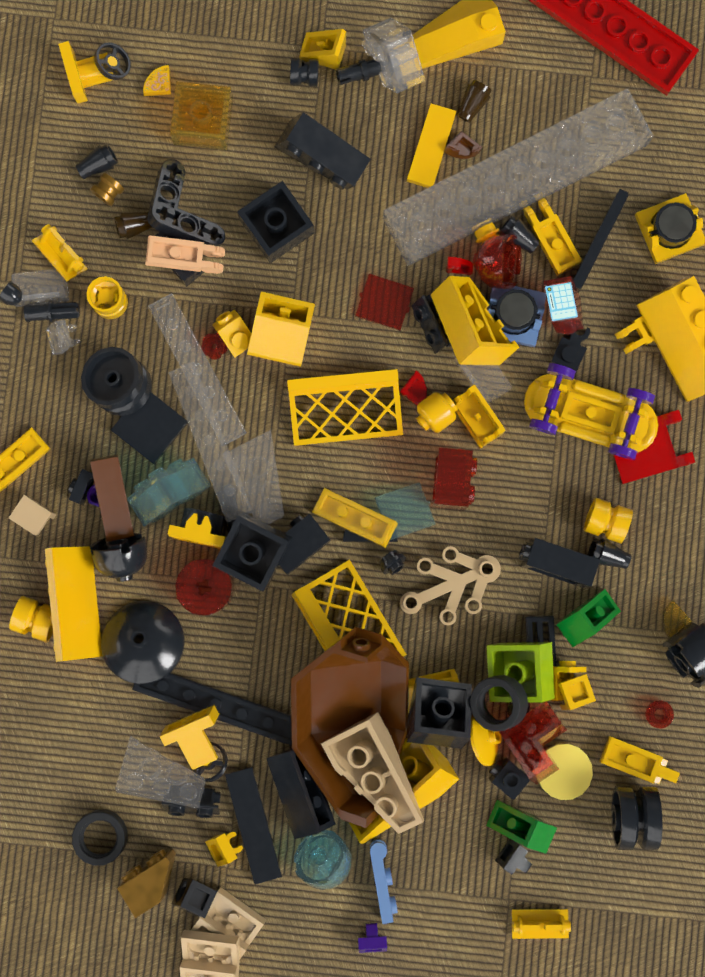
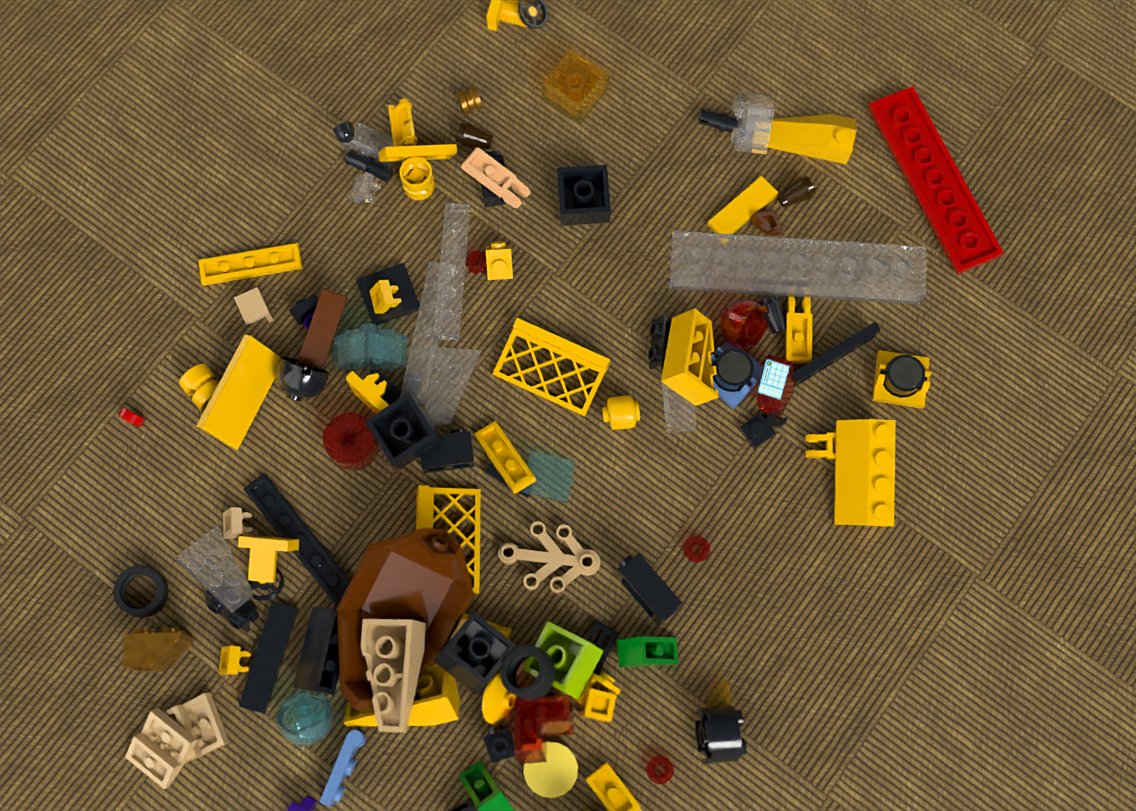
camera: 30 degrees right, 10 degrees down
(92, 273) = (428, 152): none -> yellow tile
(98, 161) = (476, 76): black cone -> none
(116, 381) = (383, 243): black wheel -> none
(144, 726) = (233, 523): none -> tan tile
(148, 434) = (382, 296): none -> yellow tile
(155, 655) = (278, 470): black dish -> none
(158, 82) = (558, 45): yellow tile -> none
(170, 209) = (506, 141): black beam -> none
(194, 897) = (182, 685): black brick -> none
(280, 329) = (537, 276): yellow slope -> none
(304, 72) = (675, 99): black wheel -> none
(322, 151) = (653, 163): black wedge -> none
(326, 46) = (703, 90): yellow slope -> none
(384, 302) = (633, 306): clear red piece -> none
(392, 562) = (513, 511): black plate -> none
(415, 389) = (616, 385): red tile -> none
(453, 479) = (601, 470): clear red brick -> none
(459, 266) = (709, 310): red tile -> none
(478, 417) = (653, 436): yellow hinge -> none
(486, 232) = (746, 294): yellow plate -> none
(585, 494) = (702, 543): none -> clear red plate
(591, 412) = (748, 486): yellow piece -> none
(608, 520) = (710, 580): yellow wheel -> none
(609, 554) = (695, 610): black cone -> none
(657, 456) = (778, 542): red flag -> none

